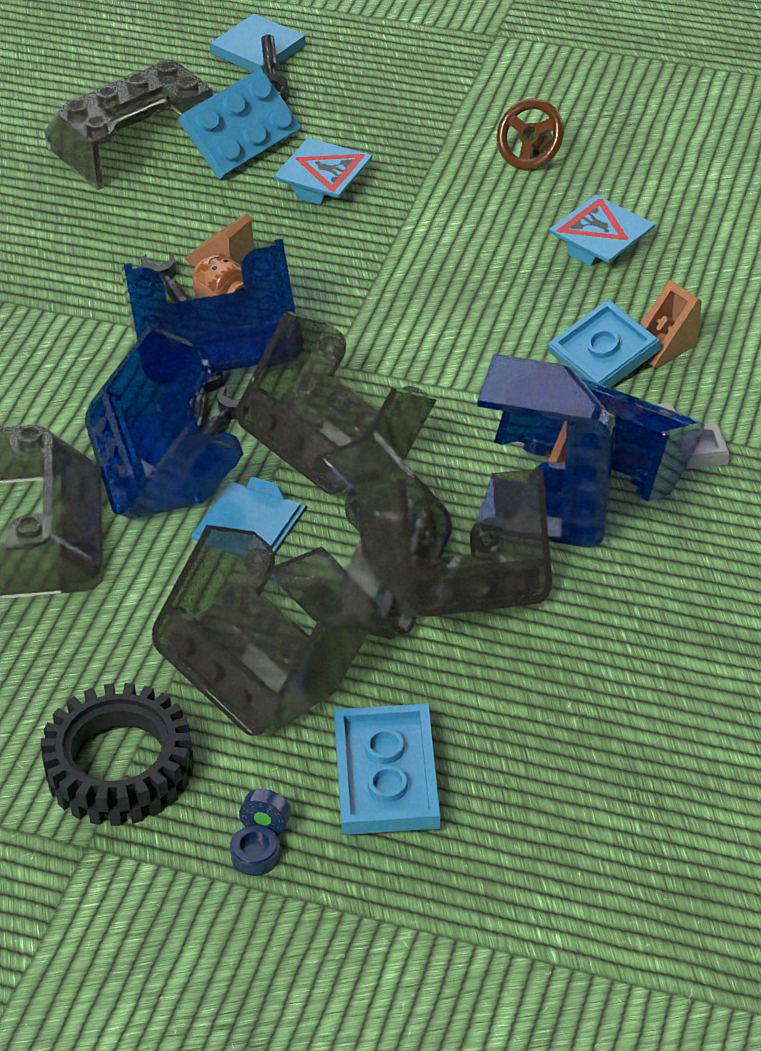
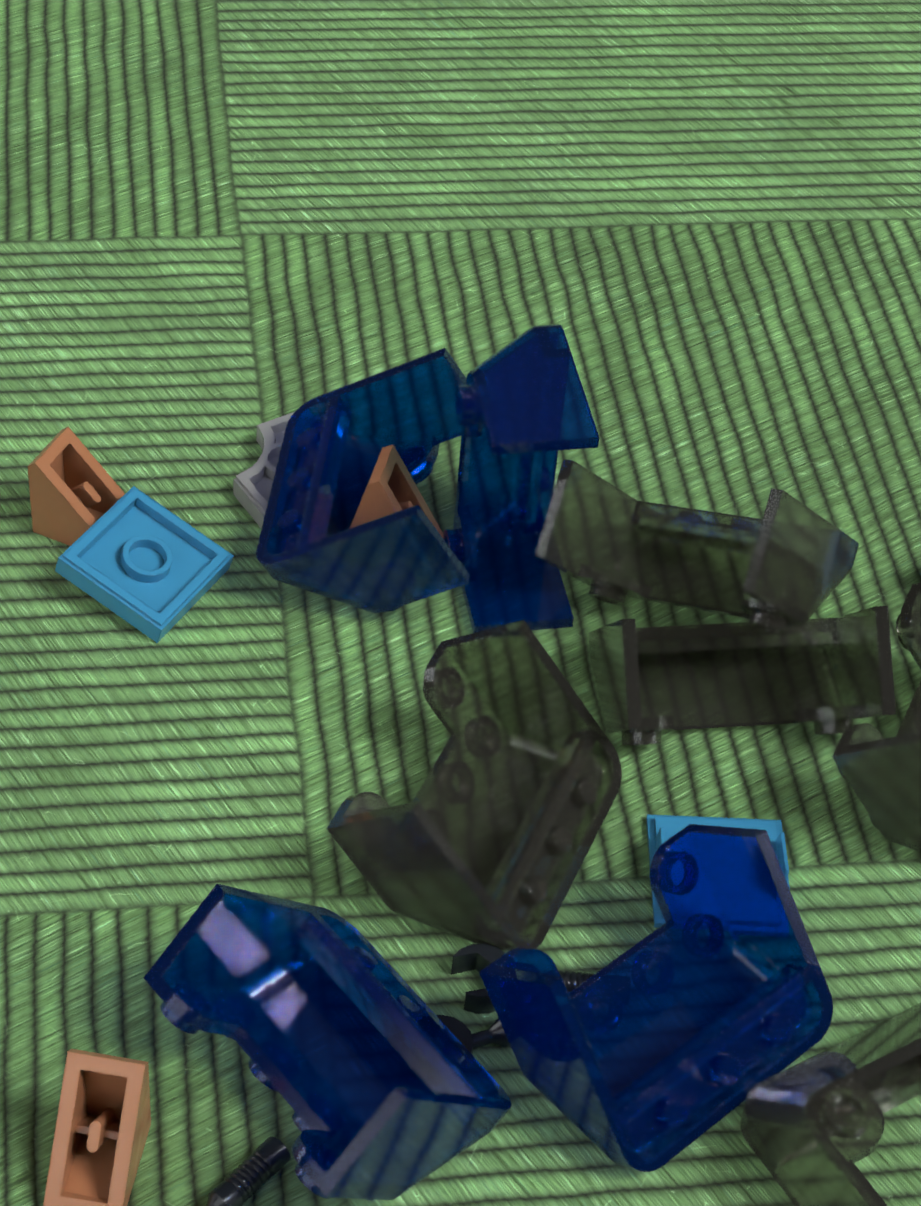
camera: 120 degrees left, 0 degrees up
(217, 276) = (198, 1105): nougat head -> none

